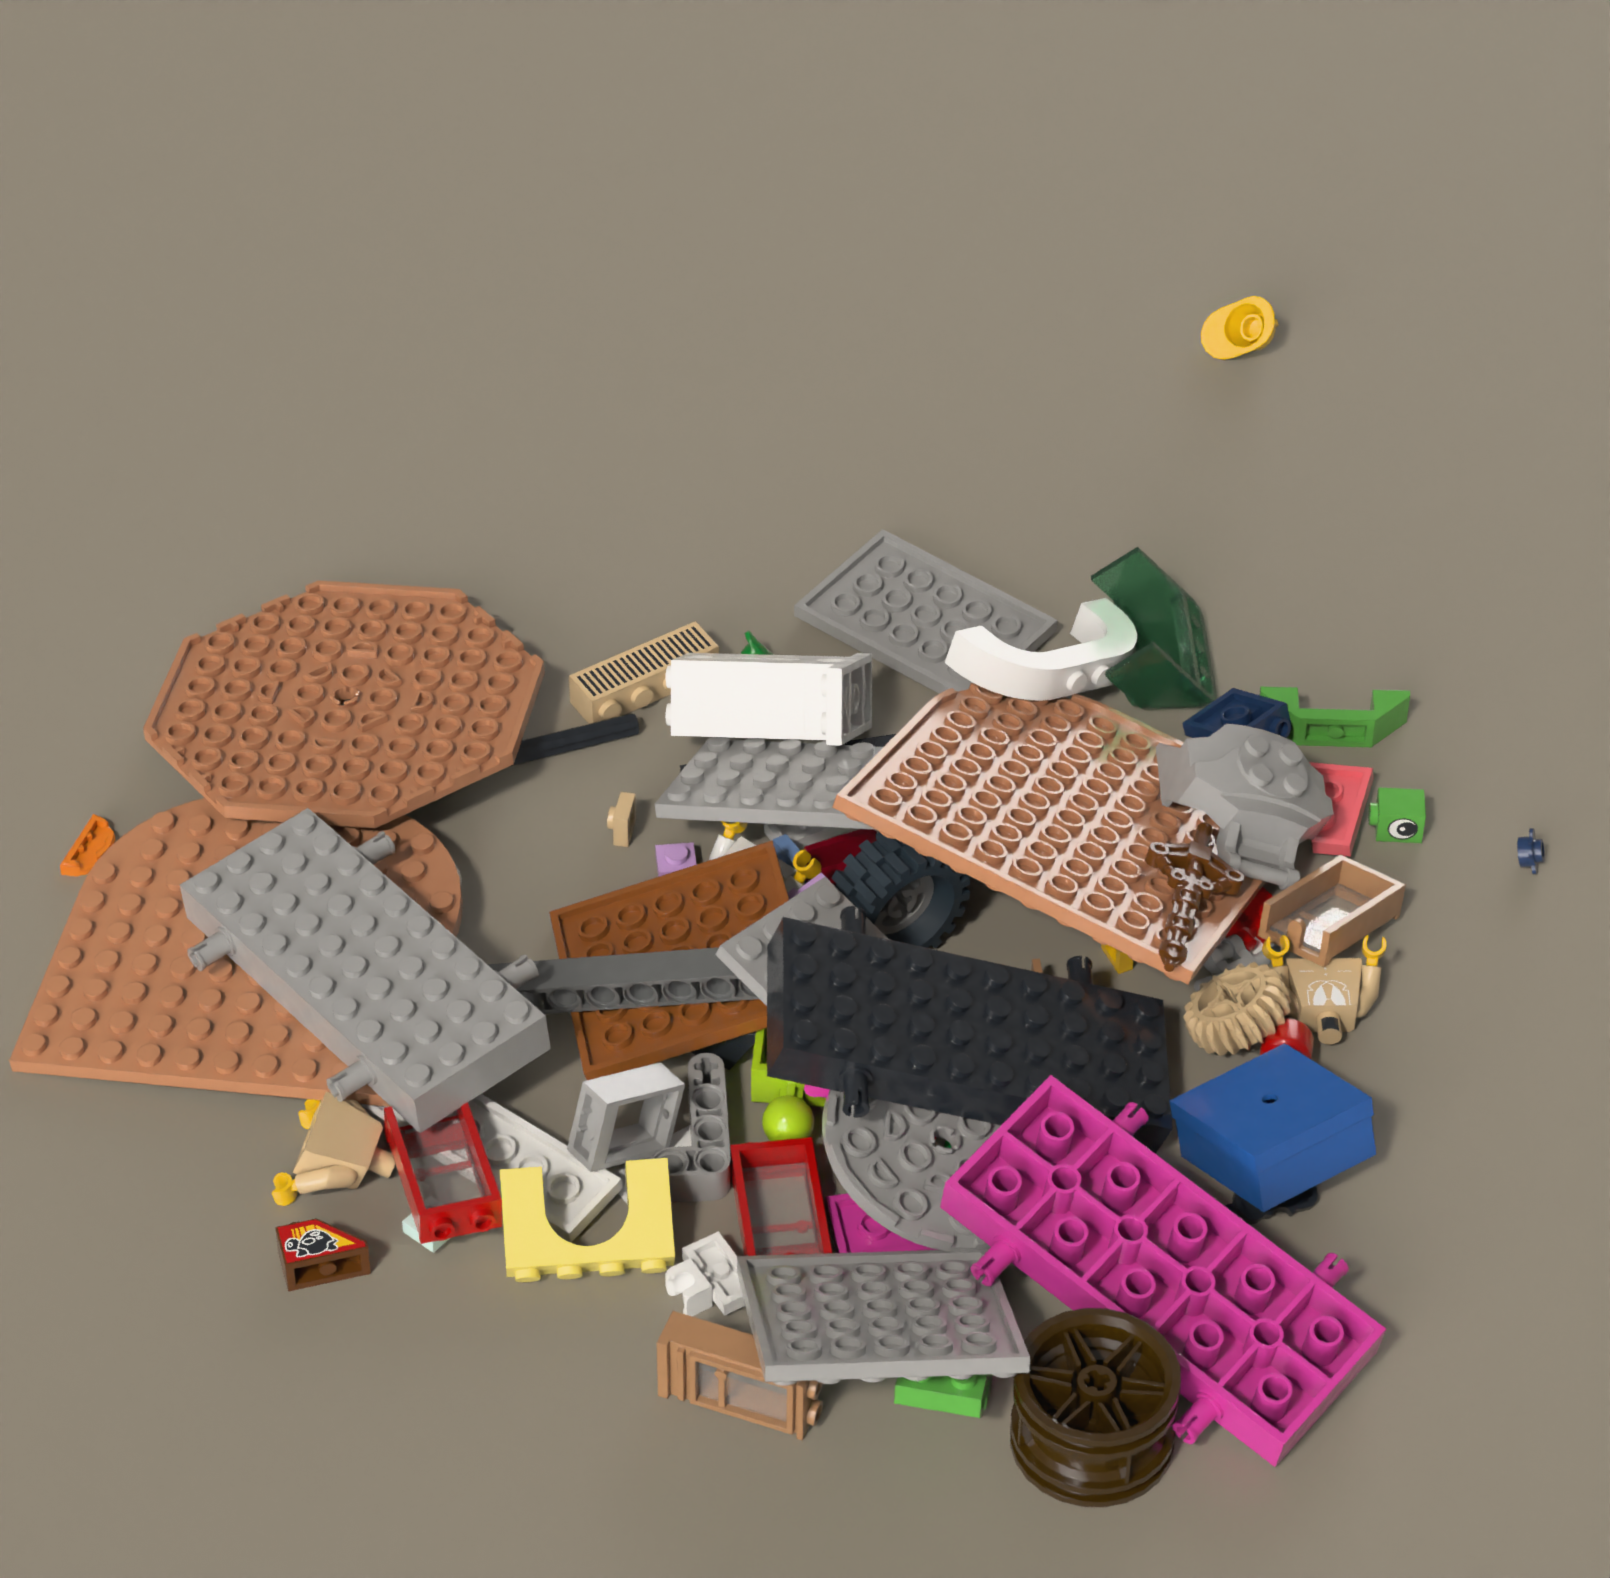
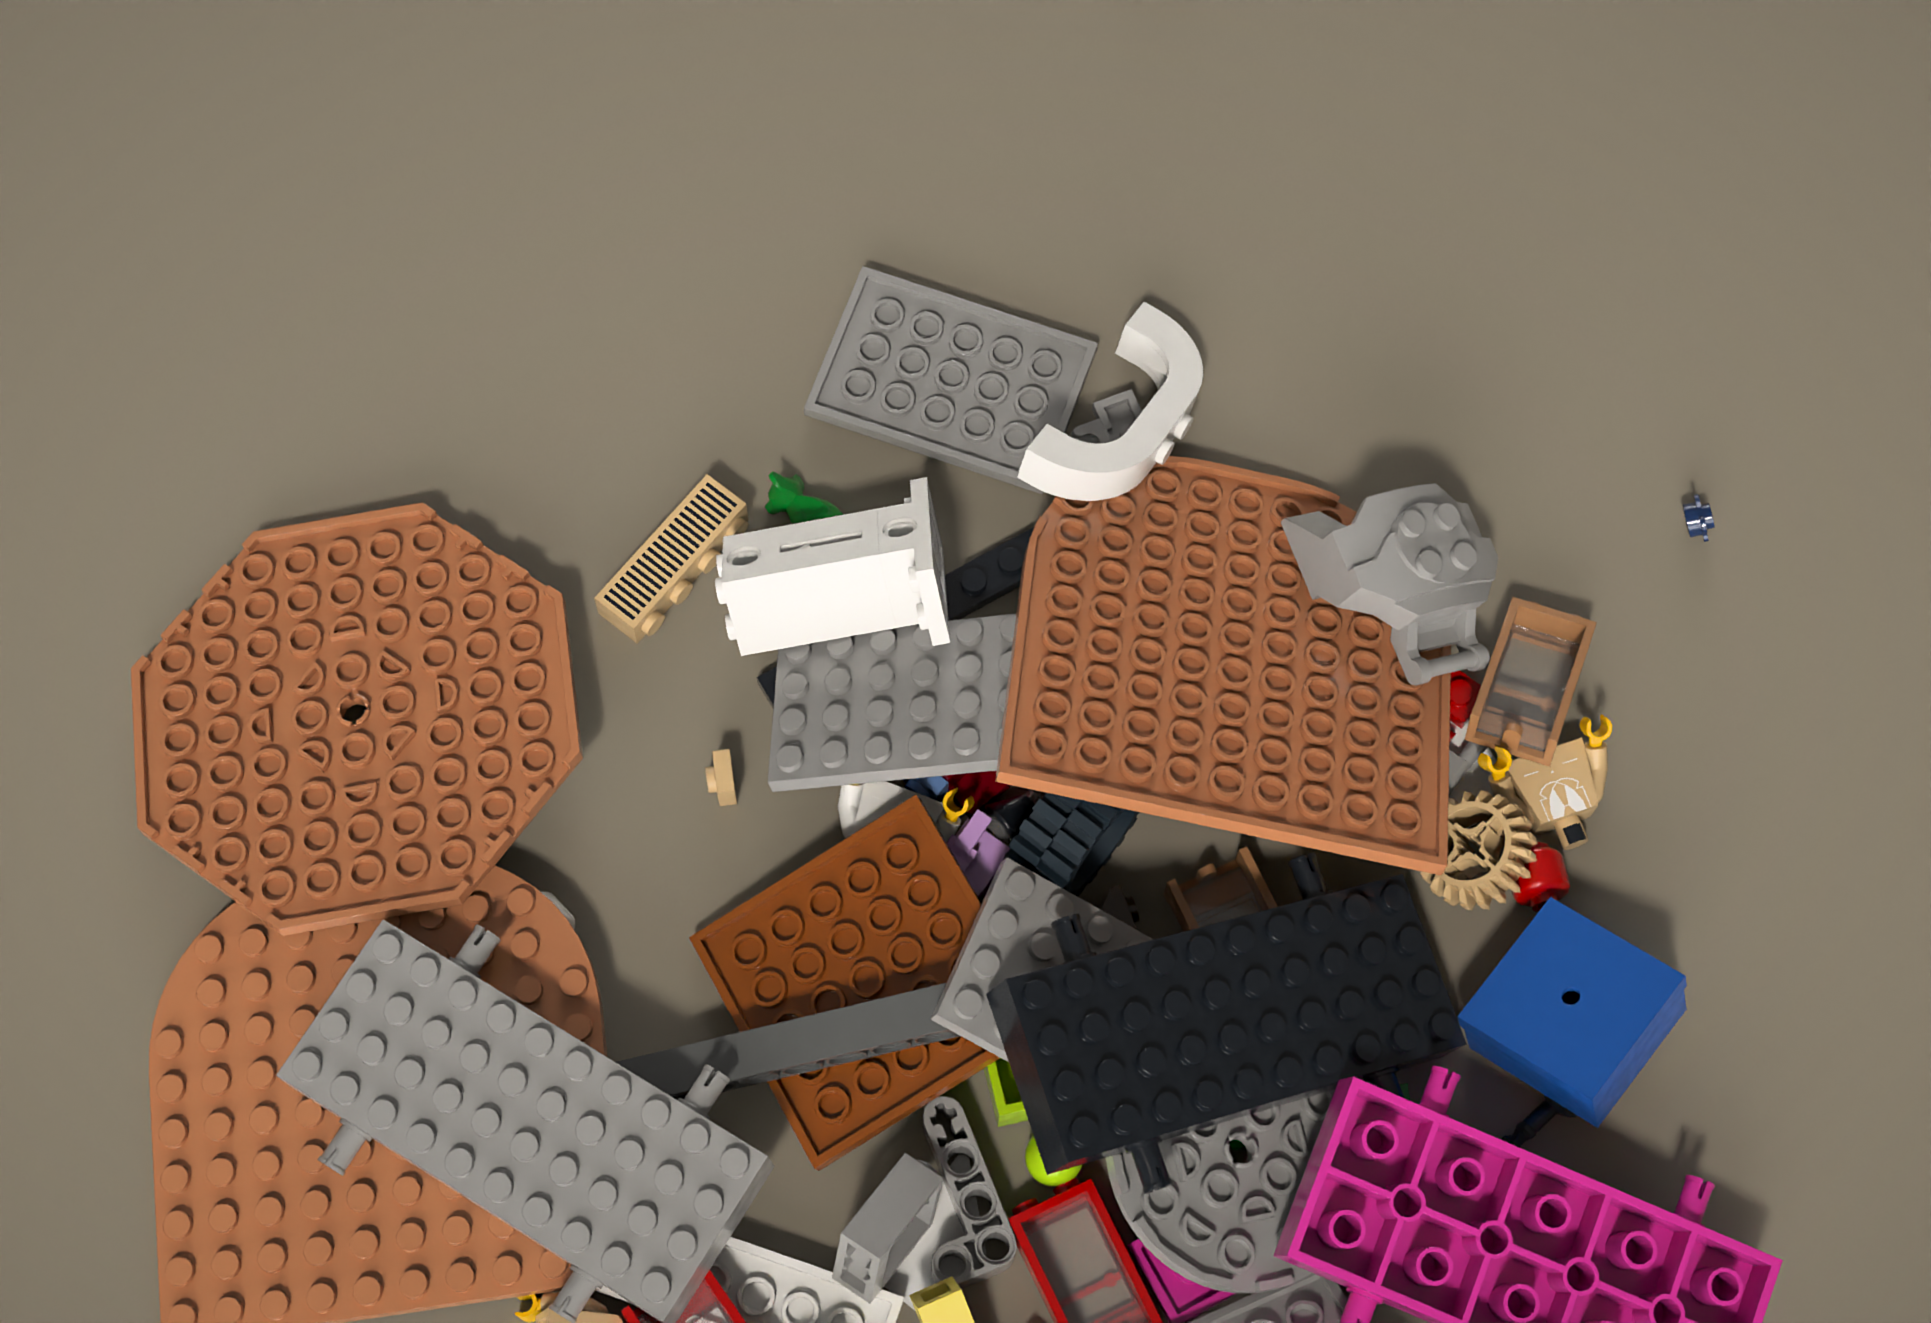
camera: 20 degrees left, 25 degrees up
(88, 847) = (136, 1001): orange tile -> none
(577, 738) = (632, 667): black axle -> none
(674, 857) = (799, 815): lavender plate -> none
(1172, 645) = (1236, 347): clear green windscreen -> none
(1194, 875) = (1397, 729): reddish brown bar -> none
(1240, 709) = (1341, 434): dark blue plate -> none
(1343, 726) = (1381, 400): bright green slope -> none
(1349, 794) = (1484, 489): coral wing -> none
(1398, 815) = (1547, 511): bright green brick -> none

